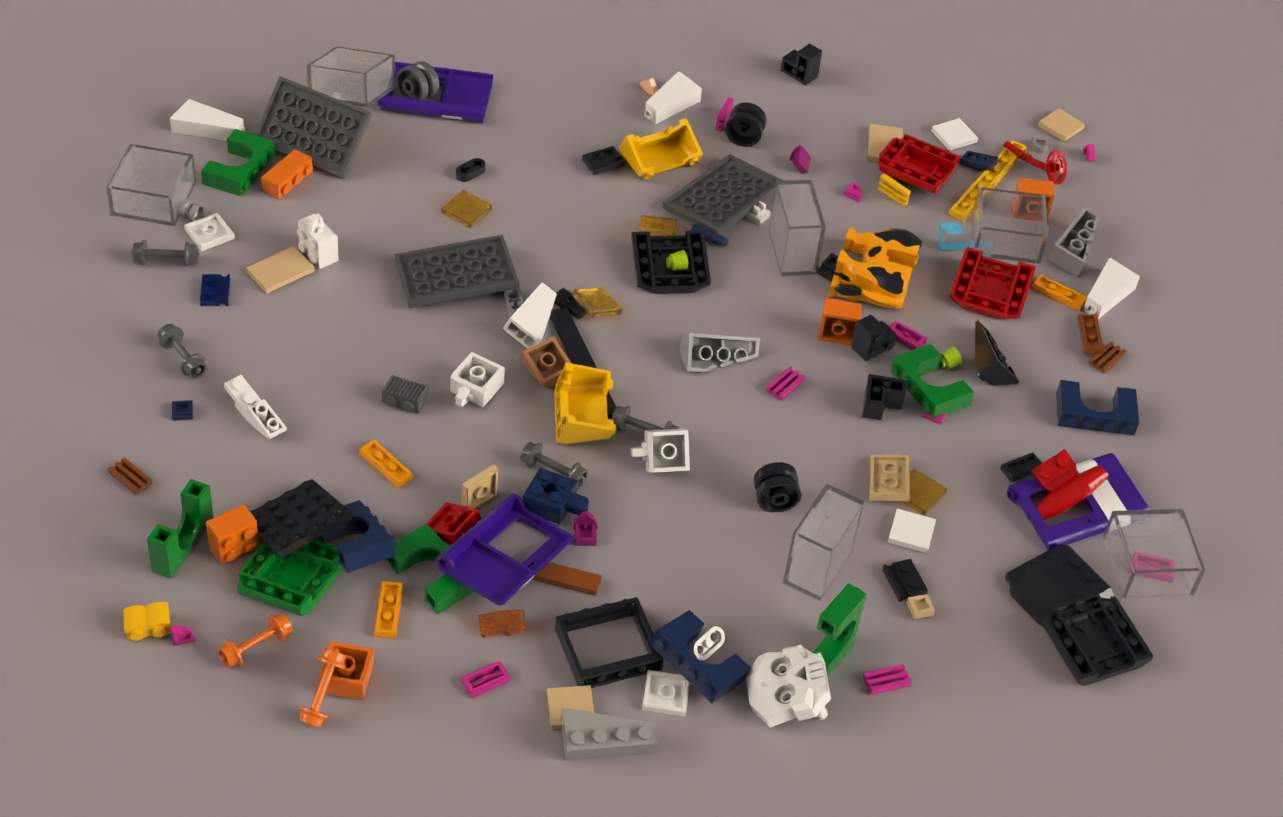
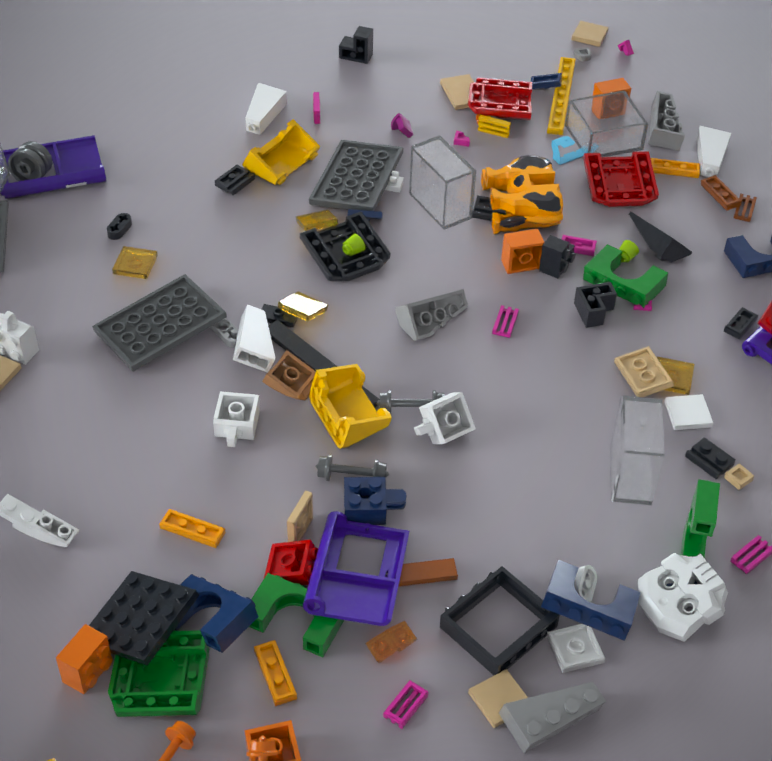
camera: 20 degrees left, 0 degrees up
(170, 546) = (28, 695): green arch -> none
(405, 394) = (175, 454): dark grey brick -> none
(585, 529) = (413, 520): magenta tile -> none
(649, 86) = (238, 104): light nougat tile -> none
(745, 124) = (342, 110): black wheel -> none
(777, 487) = (561, 415): black wheel -> none
(954, 134) = (512, 66): white tile -> none
(1051, 167) = (608, 67): red dish -> none

